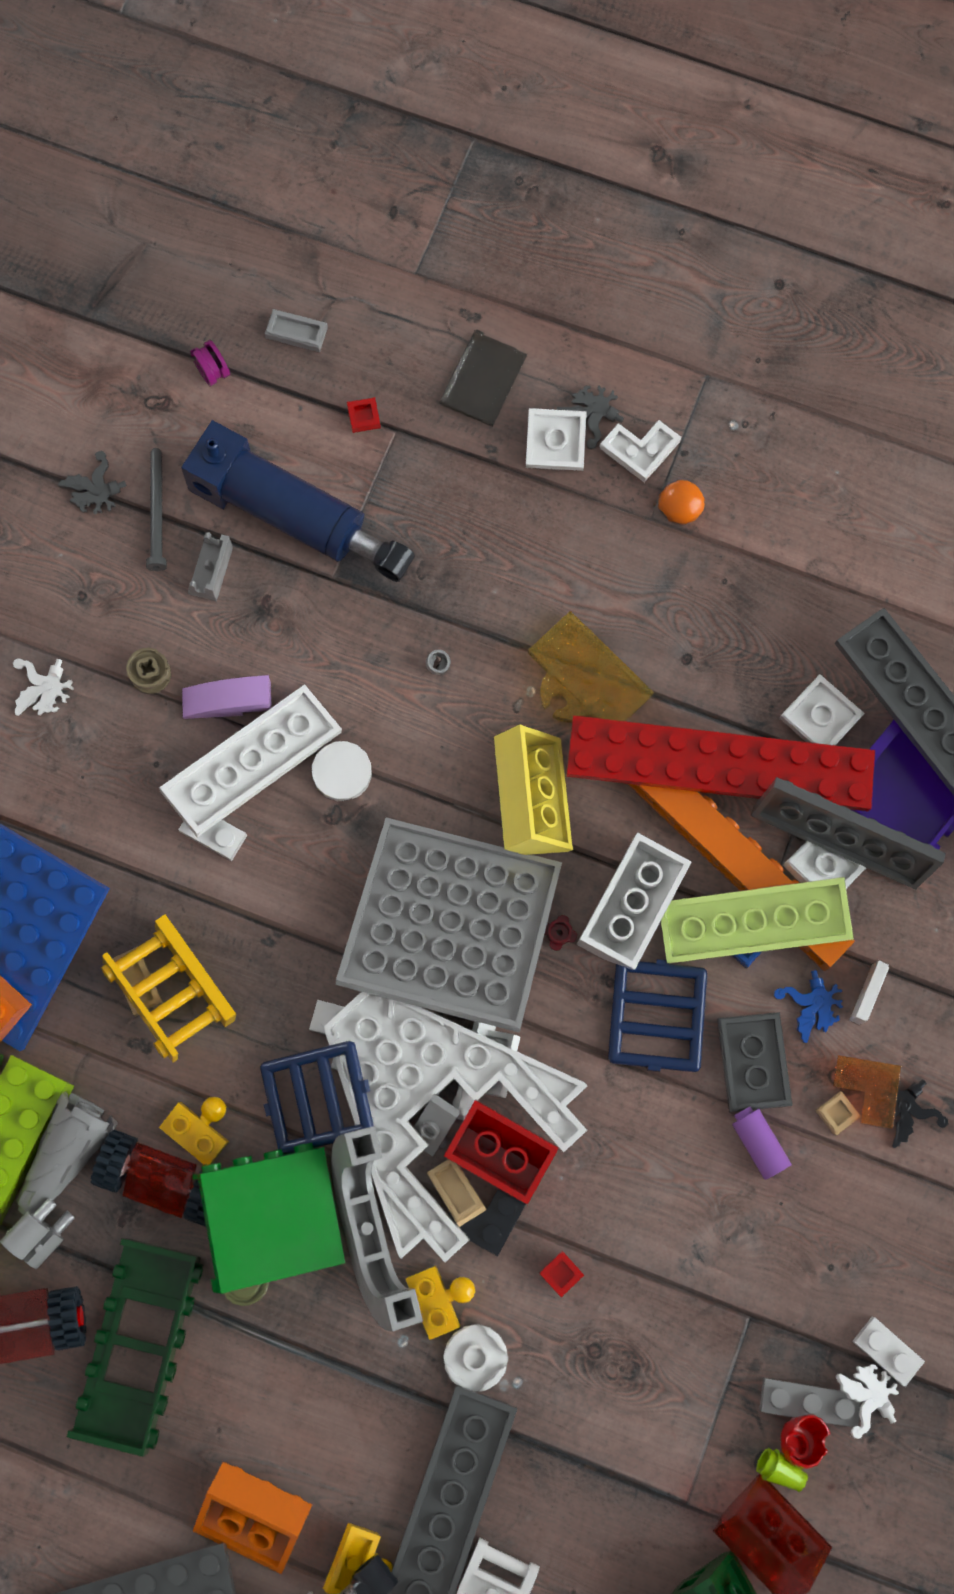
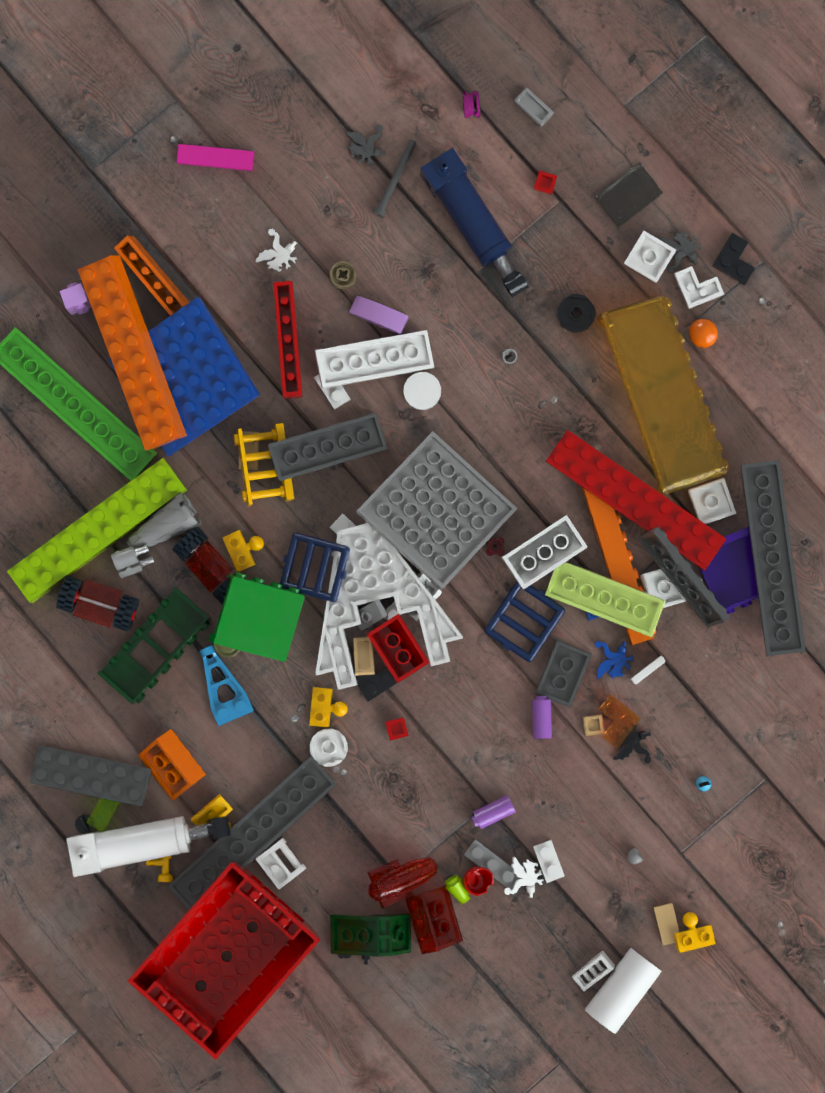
camera: 30 degrees right, 10 degrees up
(114, 795) = (288, 339): none -> red brick
(211, 567) = (408, 231): light grey hinge -> none
(245, 916) = (327, 447): none -> dark grey plate
(301, 1379) = (231, 709): none -> dark azure plate
(382, 1291) = (303, 651): light grey arch -> none
(505, 547) = (569, 305): none -> black plate
(532, 792) = (522, 460): light yellow slope -> none
(586, 674) = (590, 408): clear yellow plate -> none
(664, 397) = (729, 261): none -> black plate
(677, 605) = (664, 394): none -> clear yellow windscreen
(686, 1513) = (396, 881): none -> clear red plate
(769, 1322) = (493, 812): none -> medium lavender brick

